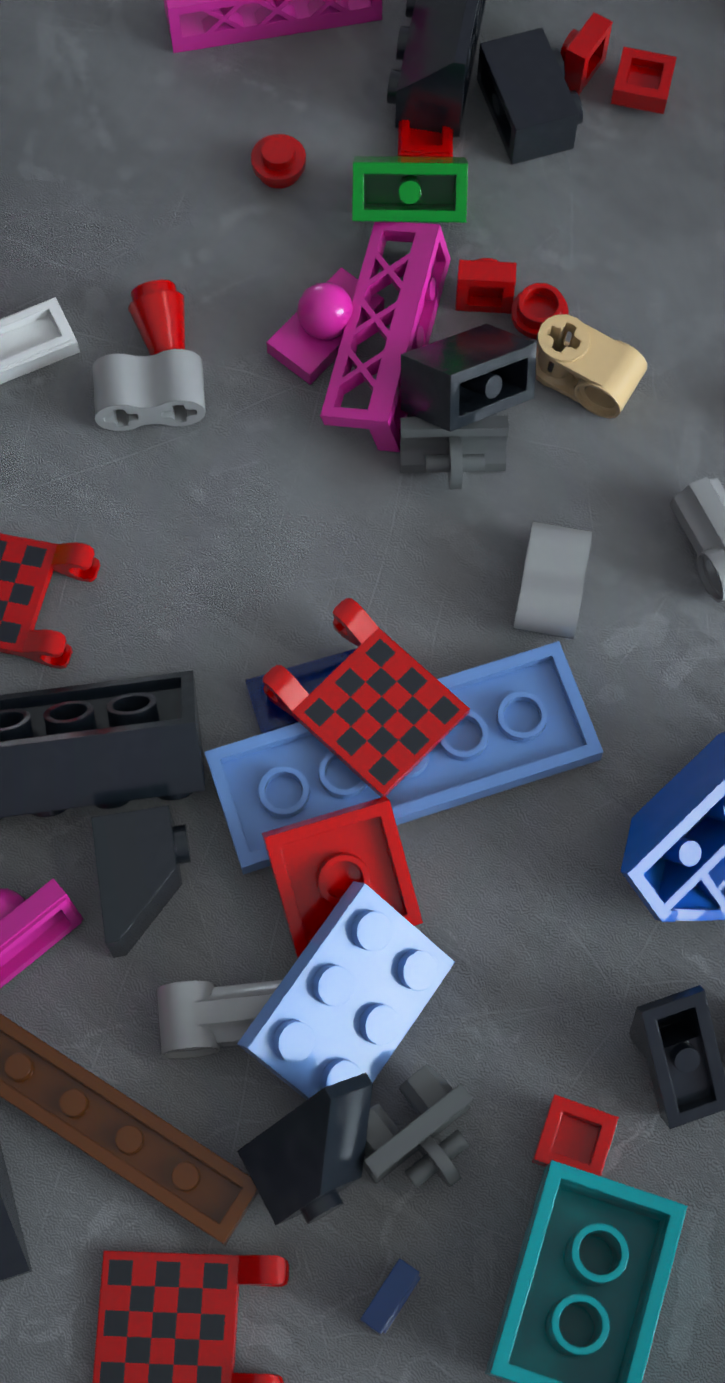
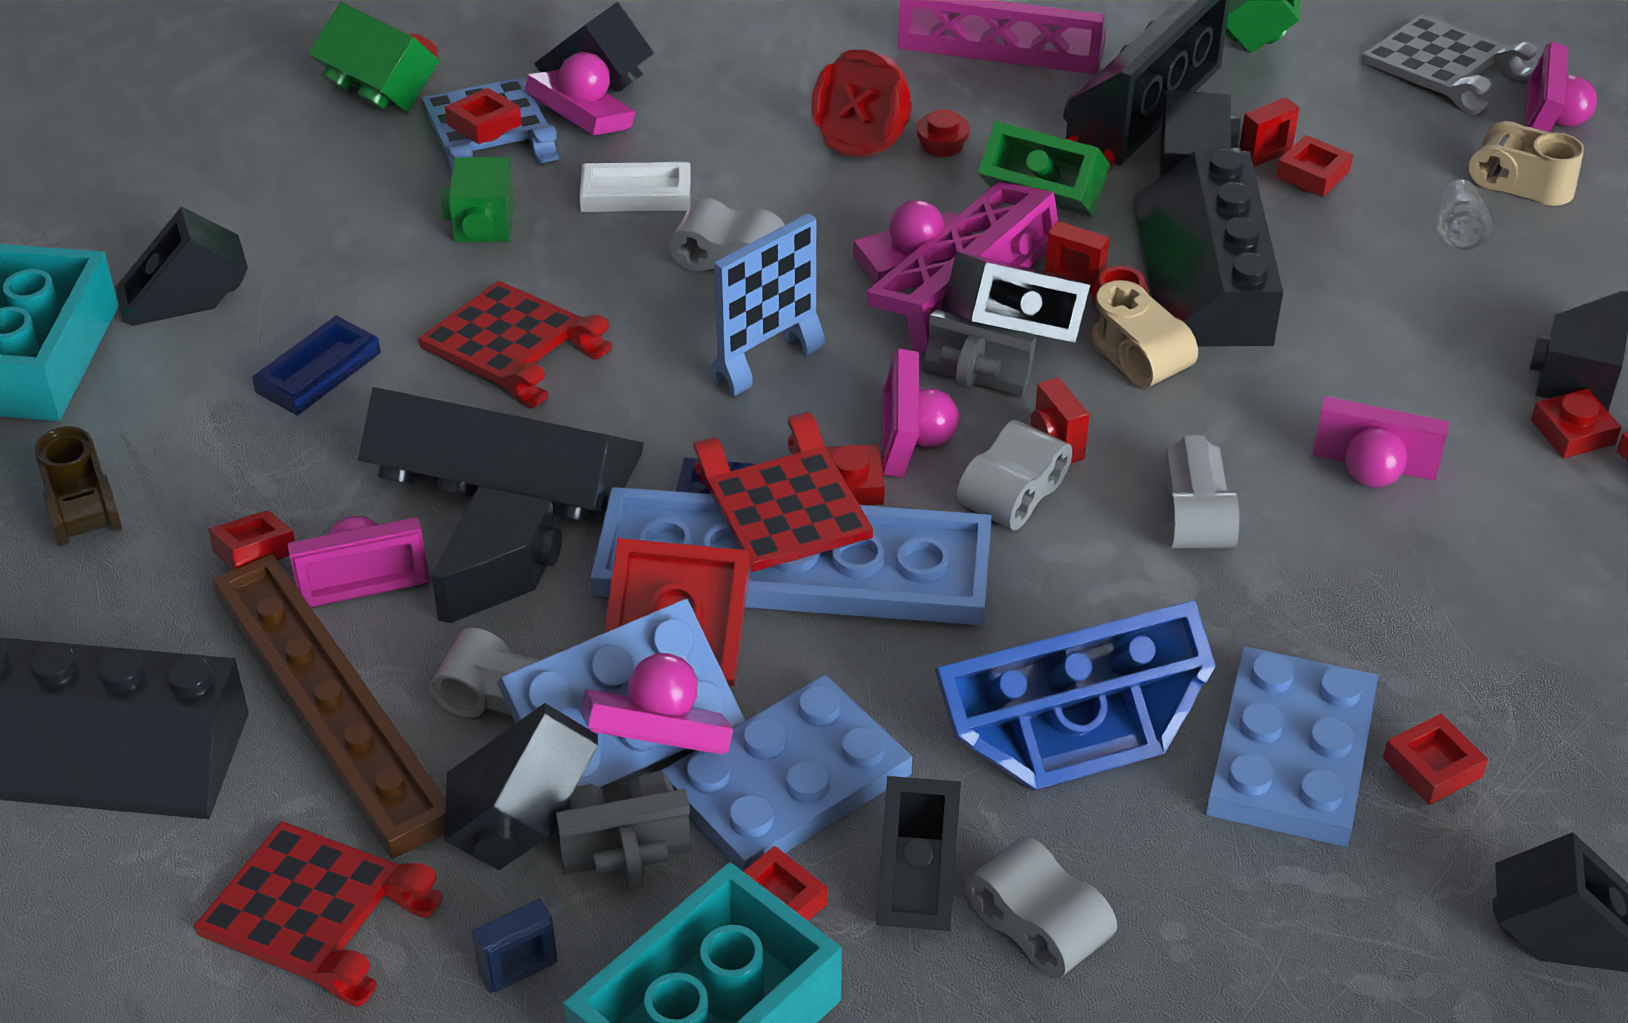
camera: 25 degrees right, 25 degrees down
(159, 315) = (772, 189): red cone -> none
(195, 167) = (861, 103): none -> red tile
(246, 483) = (762, 293): none -> medium blue flag
(402, 1023) = (659, 708): none -> dark pink tile
(409, 627) = (861, 470): none -> red plate
(426, 546) = (912, 414): none -> dark pink tile
(513, 999) = (788, 773): none -> medium blue plate
(563, 498) = (1061, 416): none -> red plate
(600, 230) = (1211, 249): none -> black slope

